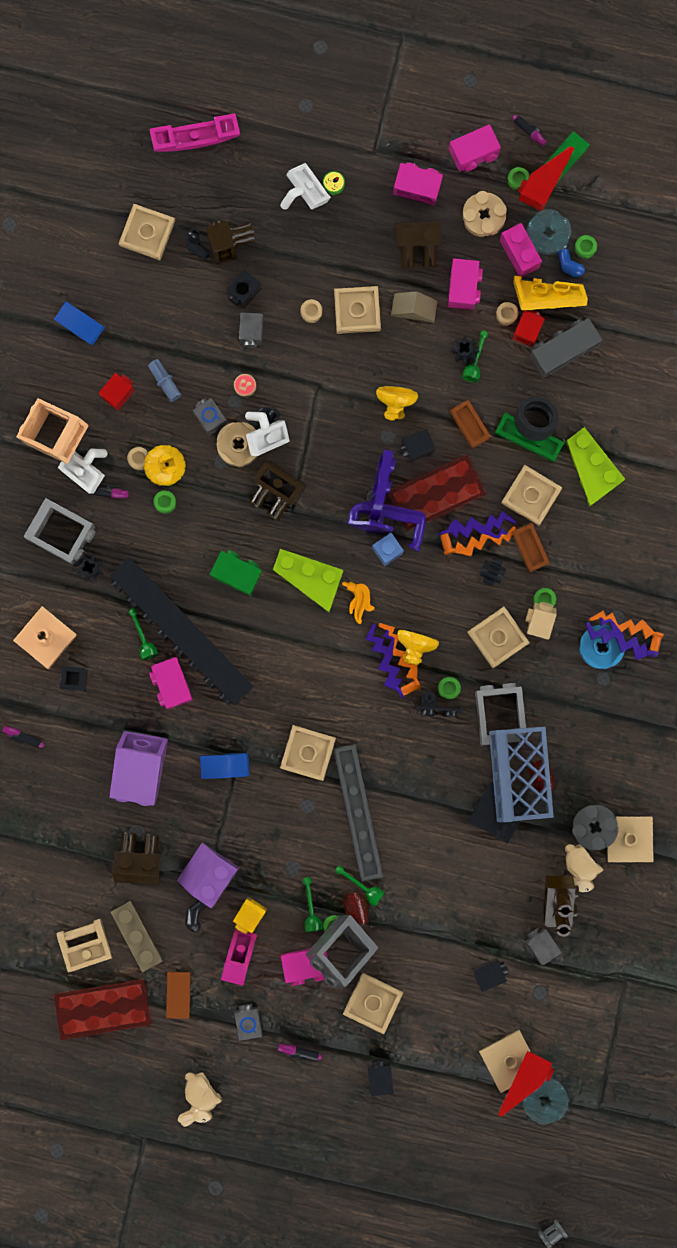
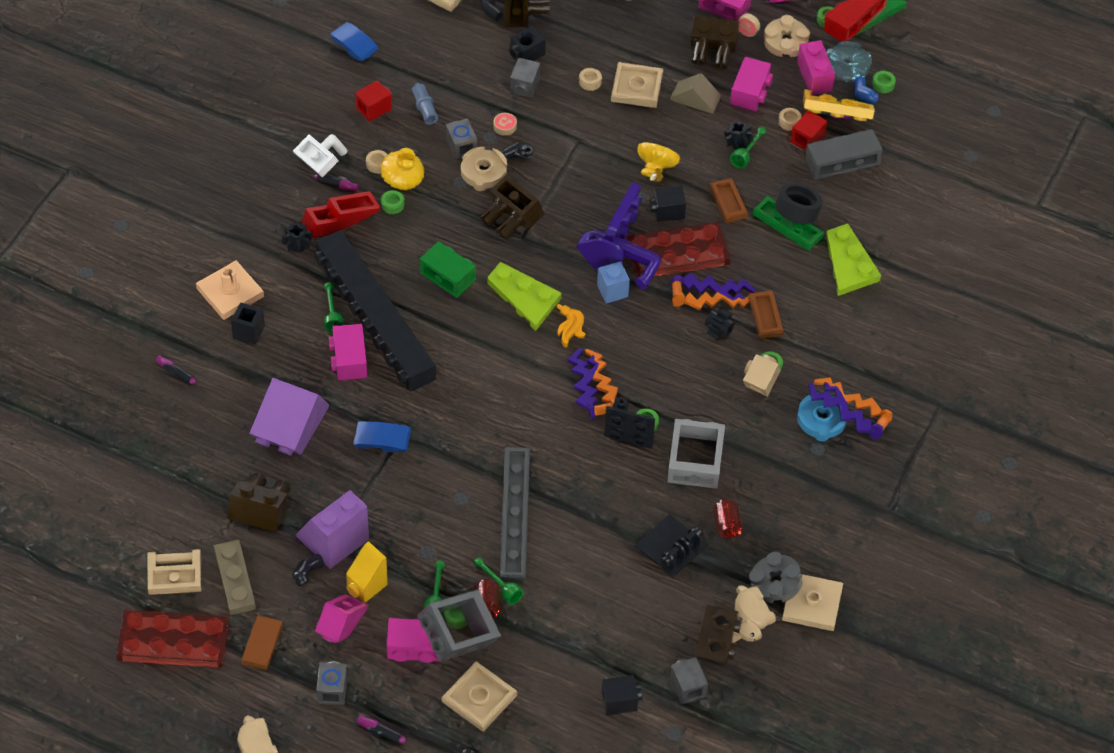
camera: 15 degrees right, 30 degrees down
(42, 518) = (265, 184): light grey window -> none
(68, 439) = (316, 116): light nougat window -> none
(121, 530) = (339, 213): none -> red slope
(266, 437) = (512, 160): white plate -> none
(308, 753) = (476, 445): tan plate -> none
(415, 645) = (621, 364): yellow hair -> none
(446, 210) = (748, 25): none -> tile
(498, 637) = (711, 384): tan plate -> none
(503, 779) = (682, 499): sand blue fence -> none
(531, 495) = (778, 269): tan plate -> none

